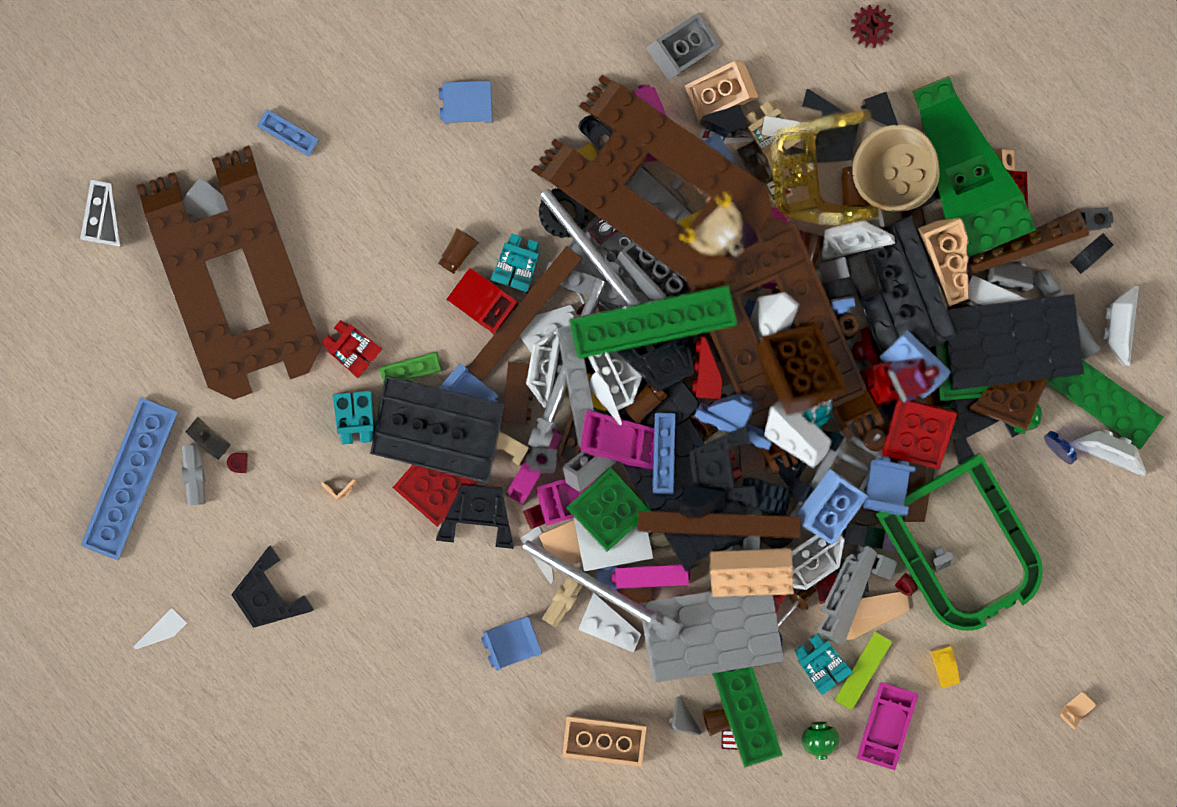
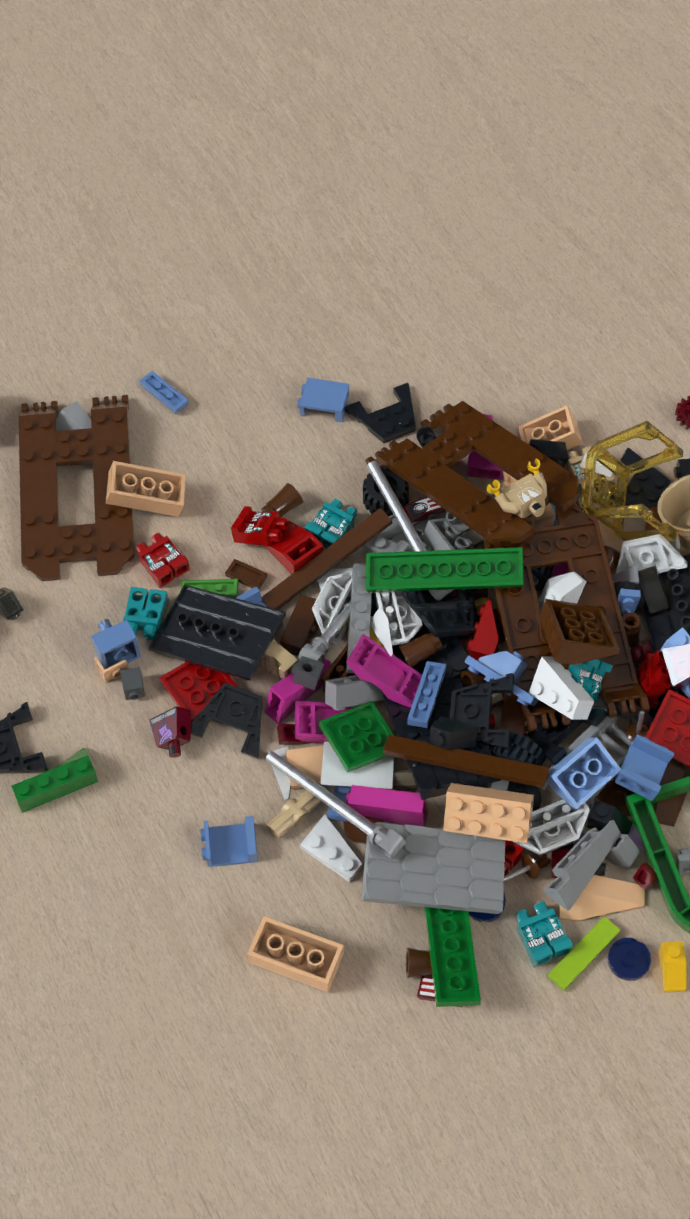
camera: 20 degrees right, 30 degrees down
(238, 462) = (25, 630): dark red tile -> none
(312, 275) = (145, 488): none -> light nougat brick
(331, 615) = (63, 779): none -> green wedge
(338, 464) = (115, 643): none -> medium blue brick
(368, 500) = (132, 683): none -> dark grey brick
(423, 545) = (172, 729): none -> dark red torso
(443, 290) = (258, 527): none -> red hips
(443, 342) = (246, 574): none -> reddish brown tile
(546, 110) = (389, 421): none -> black wing
(683, 46) = (522, 396): light grey slope -> none
(683, 720) = (384, 956): light grey piece -> none
(820, 740) = (524, 1011): green plant -> none
(887, 725) = (600, 1013): dark pink slope -> none
(904, 665) = (629, 959): none -> clear blue tile

